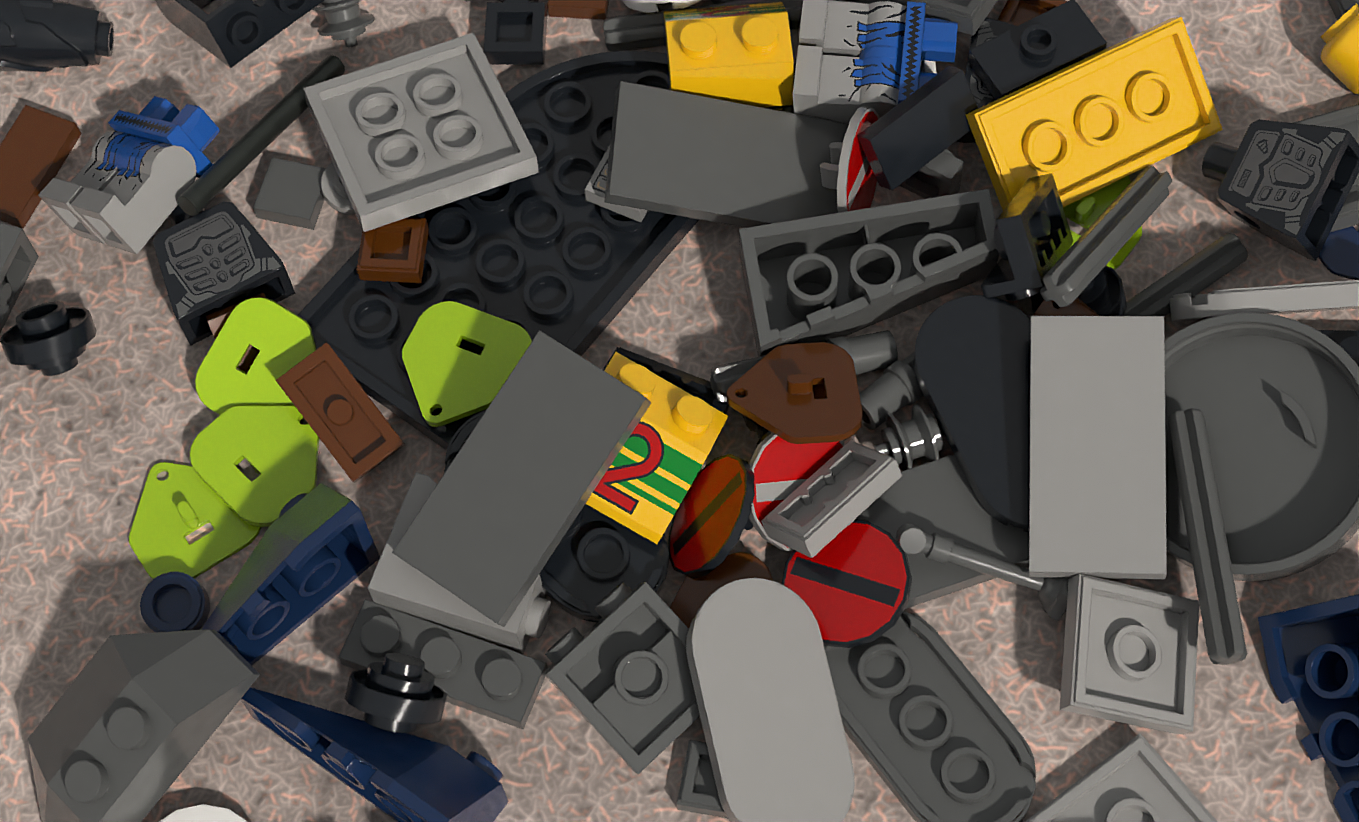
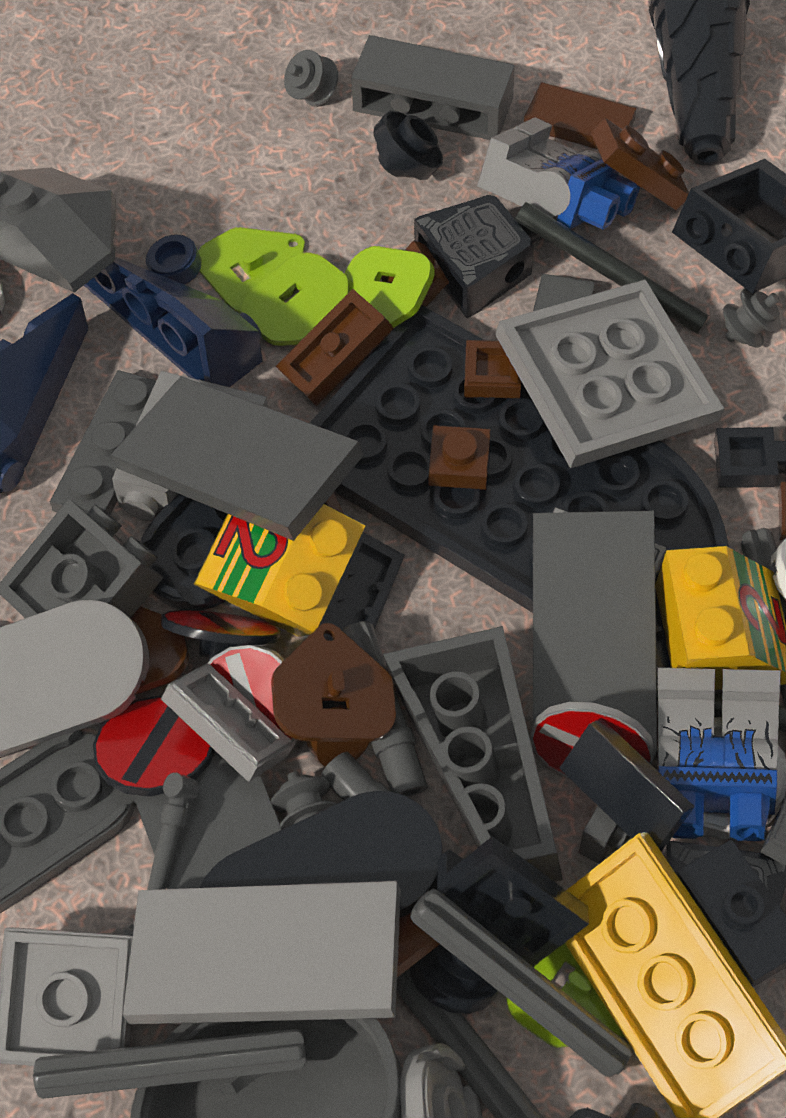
camera: 85 degrees right, 5 degrees down
(128, 90) = (631, 156): none -> reddish brown plate
(396, 694) = (62, 397): black plate -> none
(455, 377) = (365, 415): lime piece -> none
(508, 282) = (459, 457): none -> reddish brown plate

